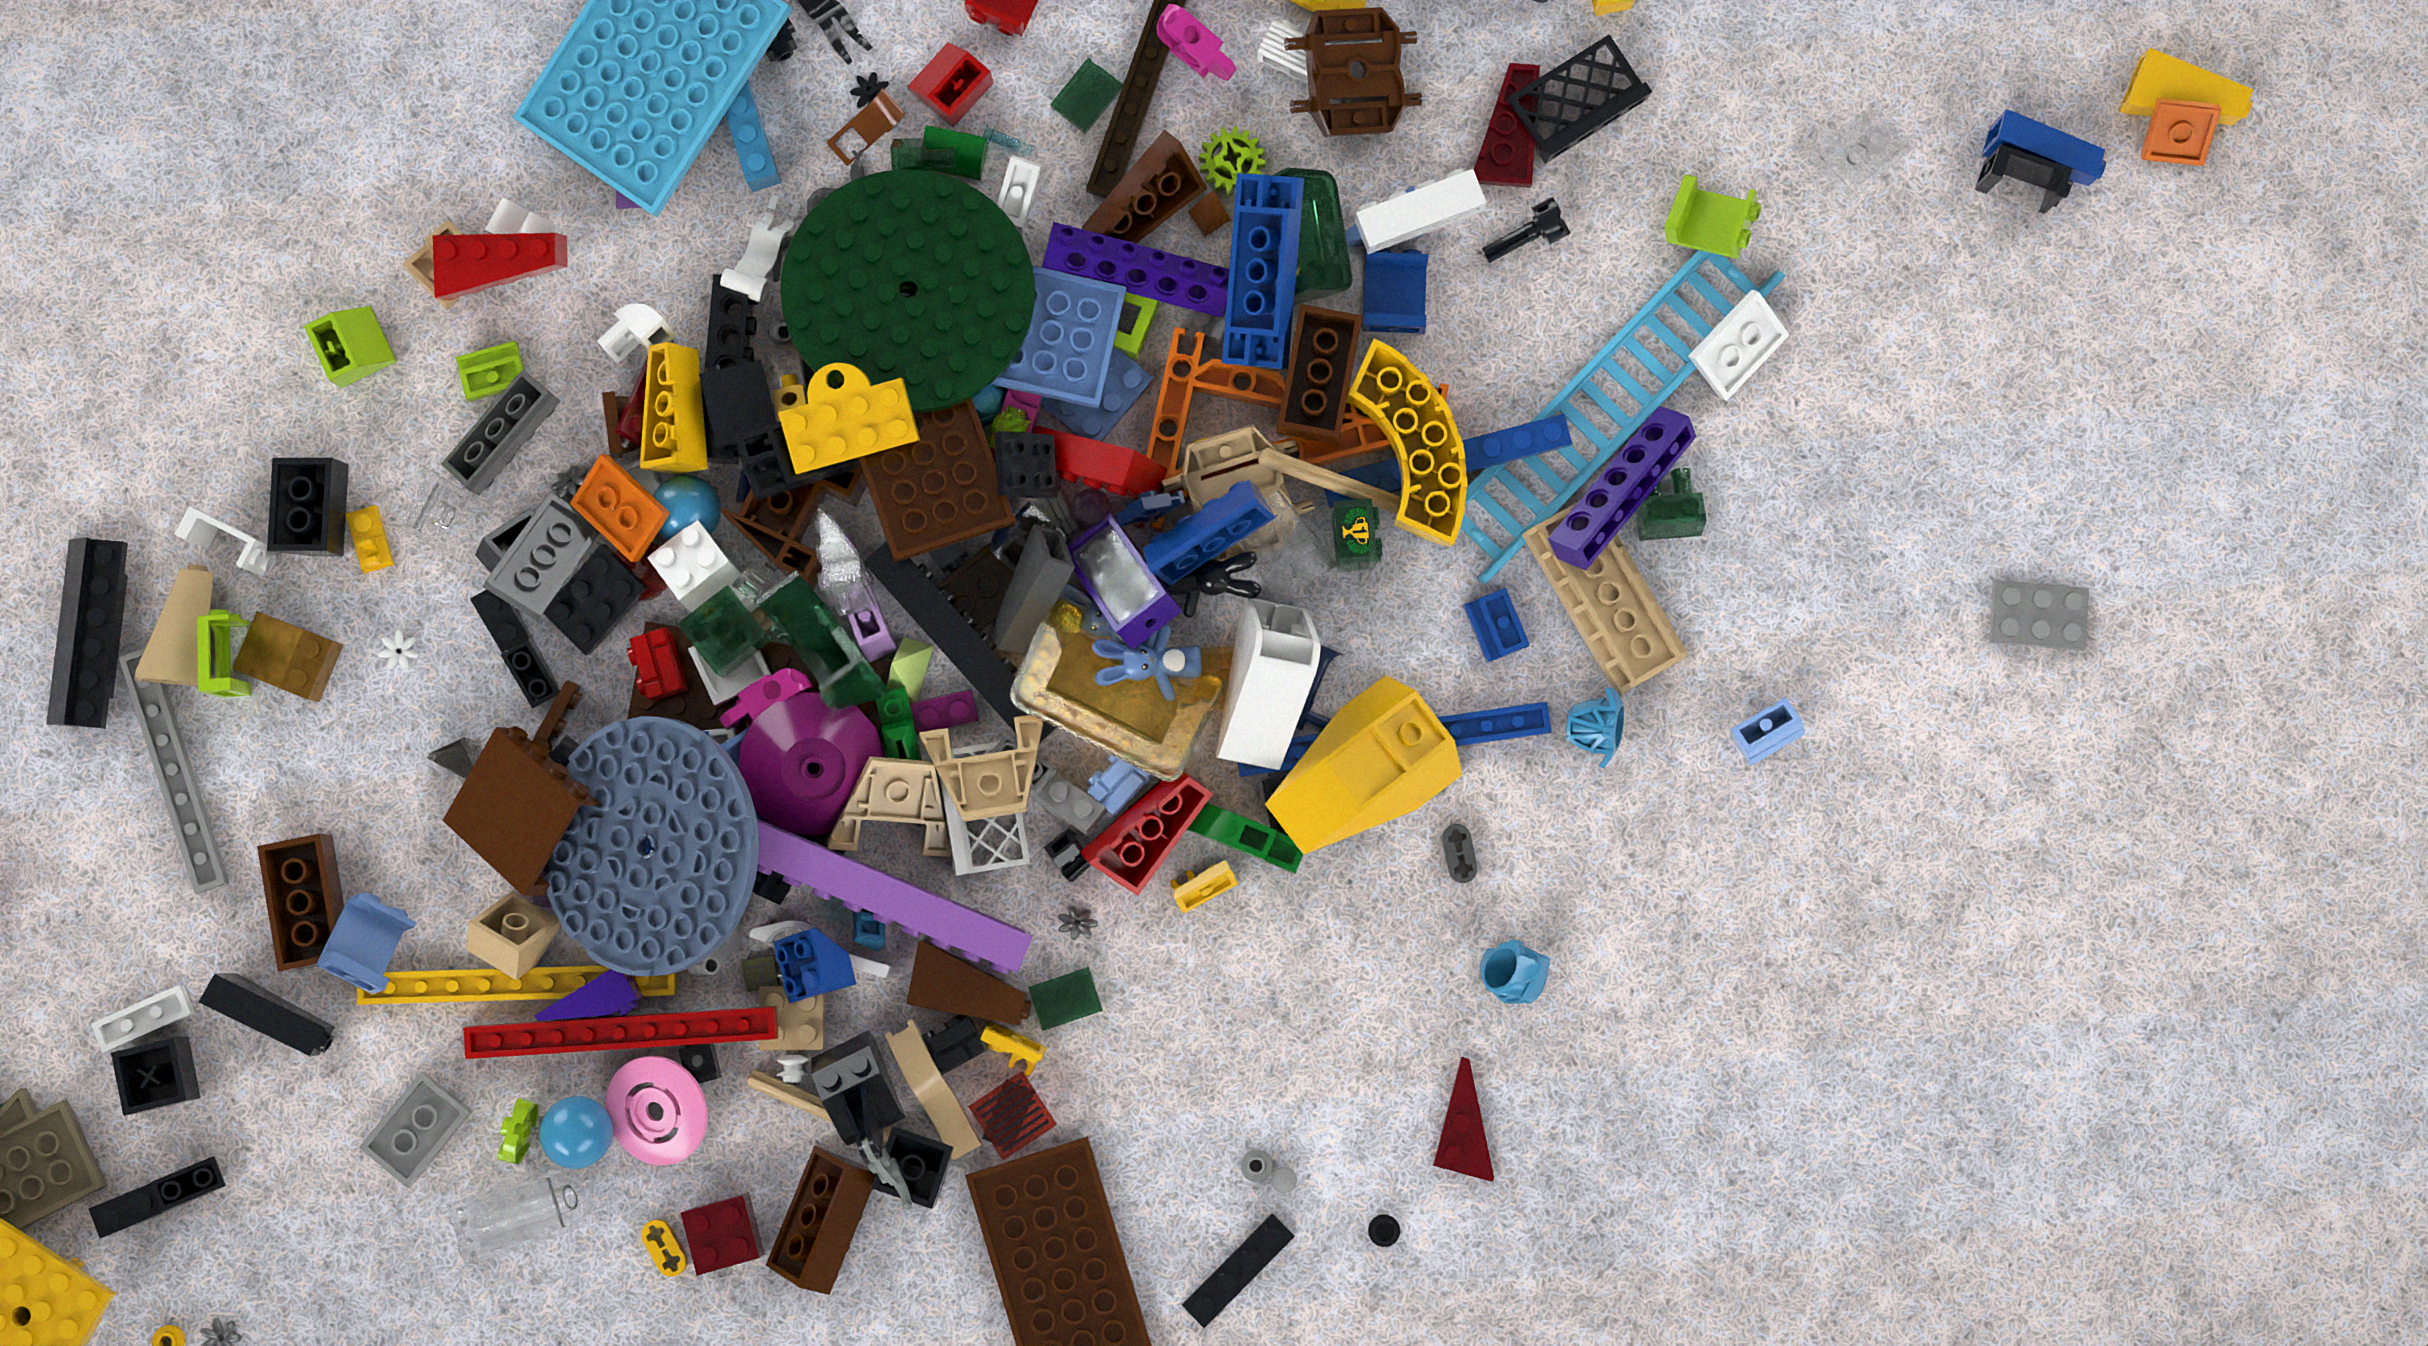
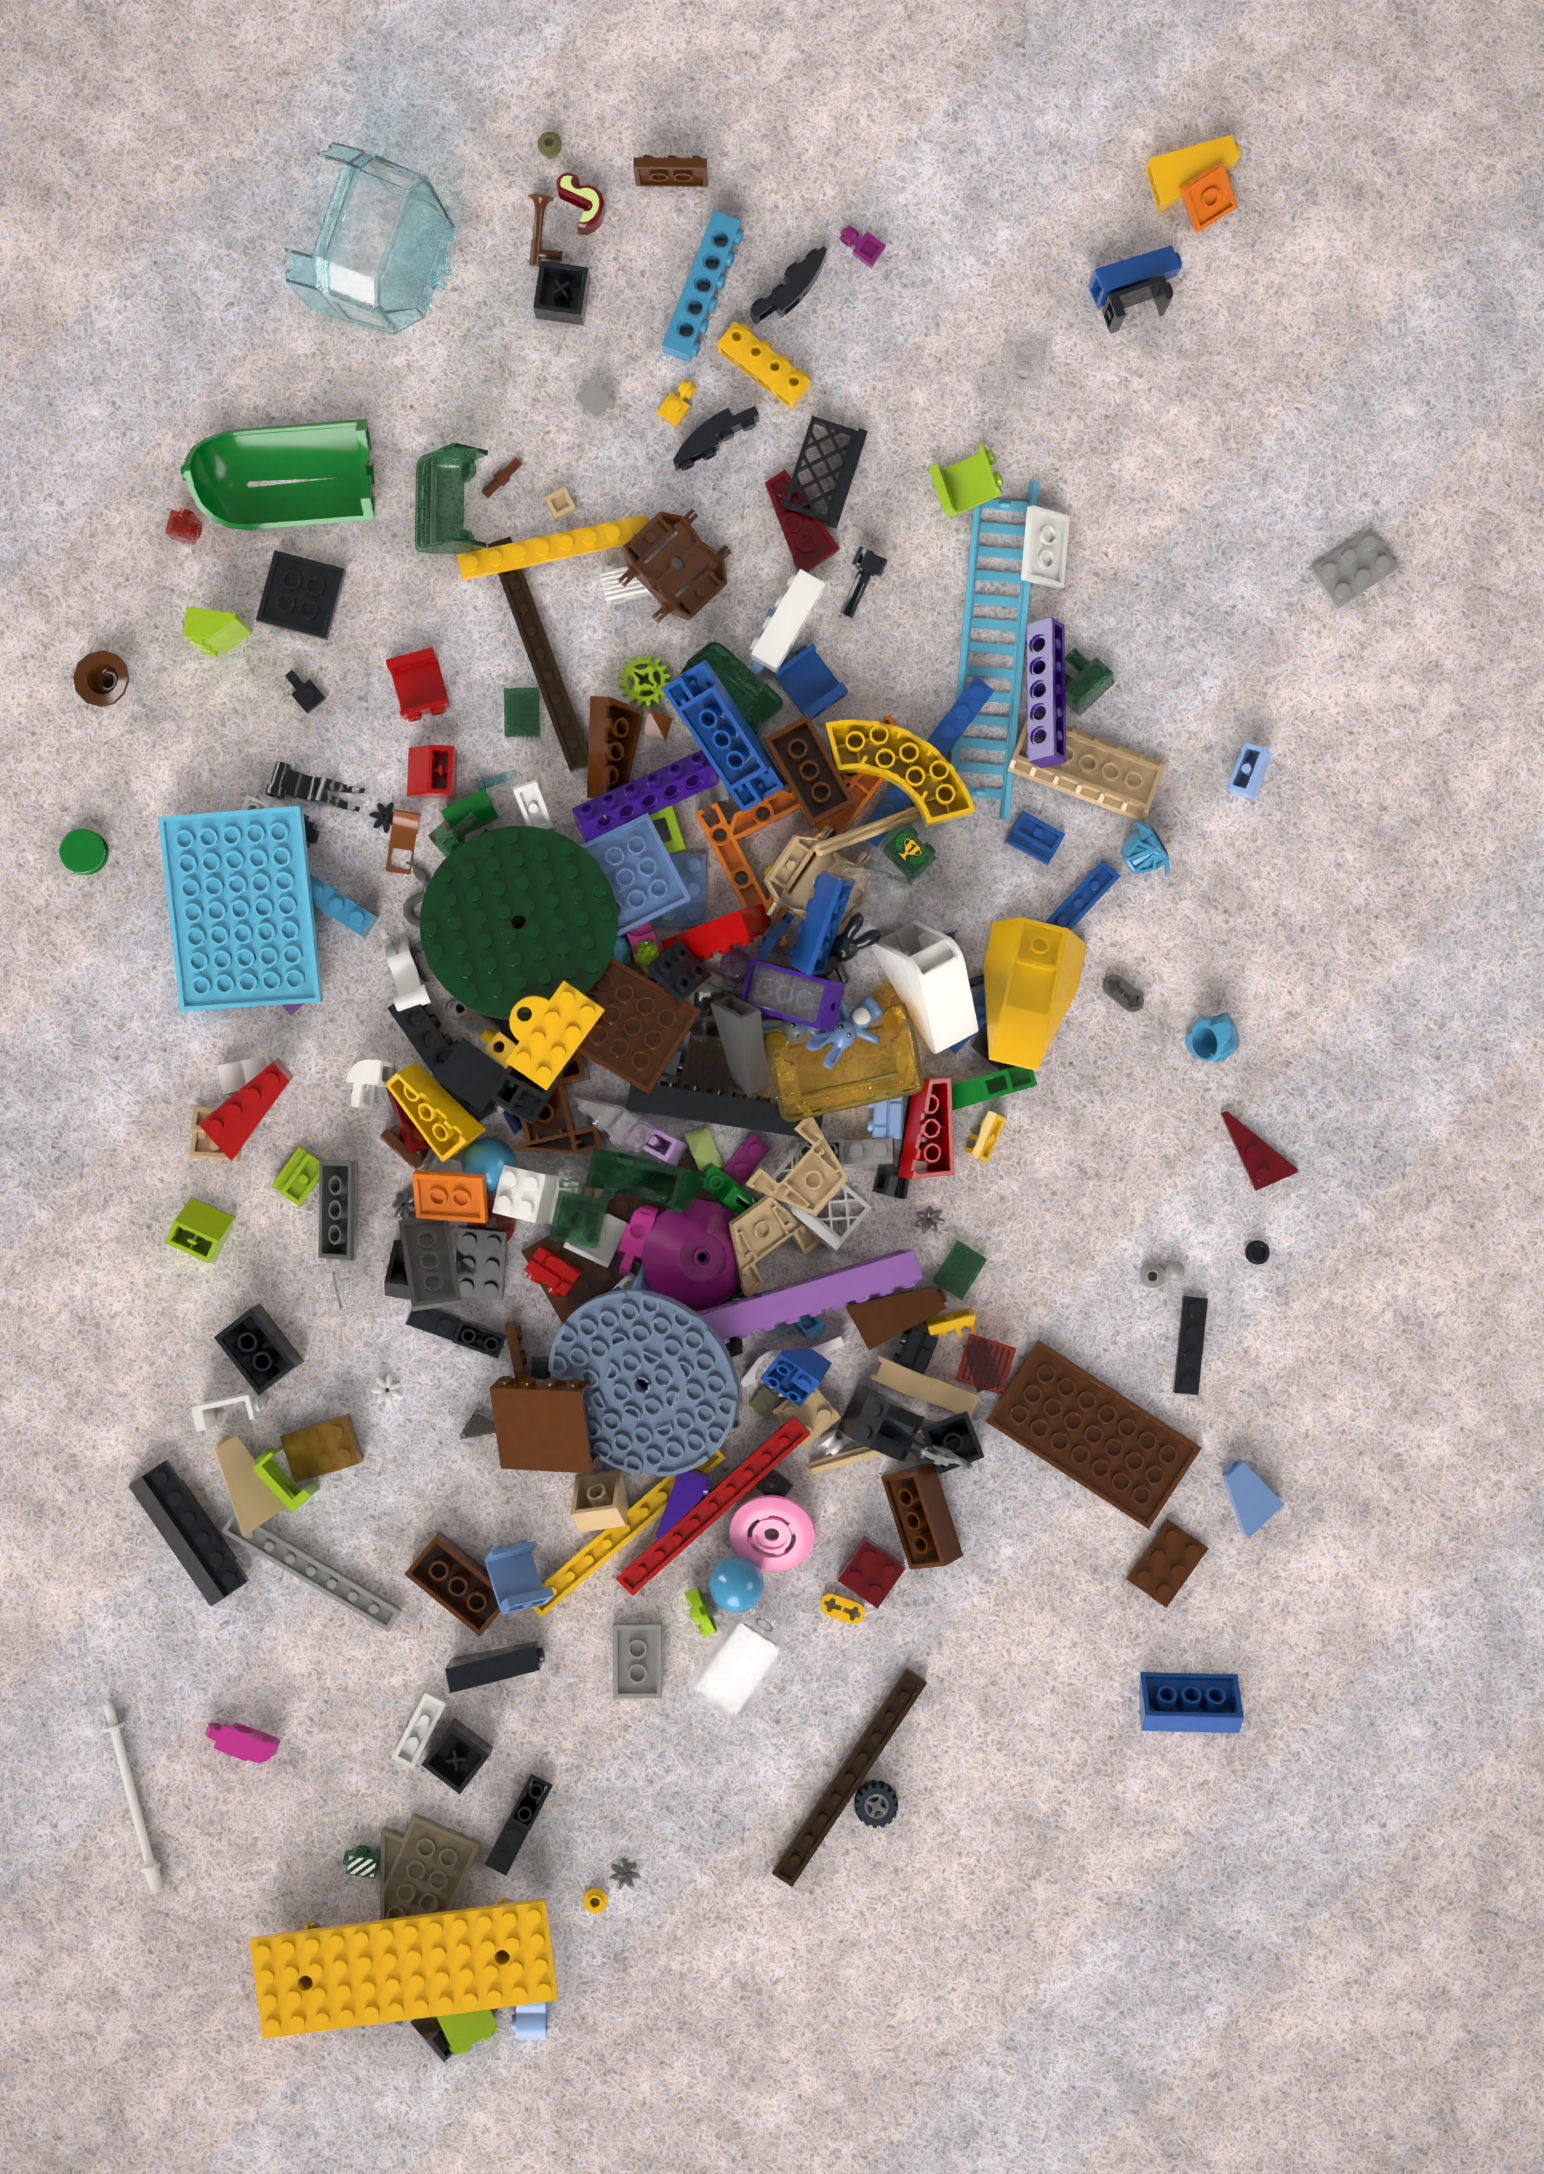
camera: 40 degrees left, 5 degrees up
(370, 539) = (311, 1337): yellow plate -> none
(1193, 43) = (562, 626): dark pink piece -> none

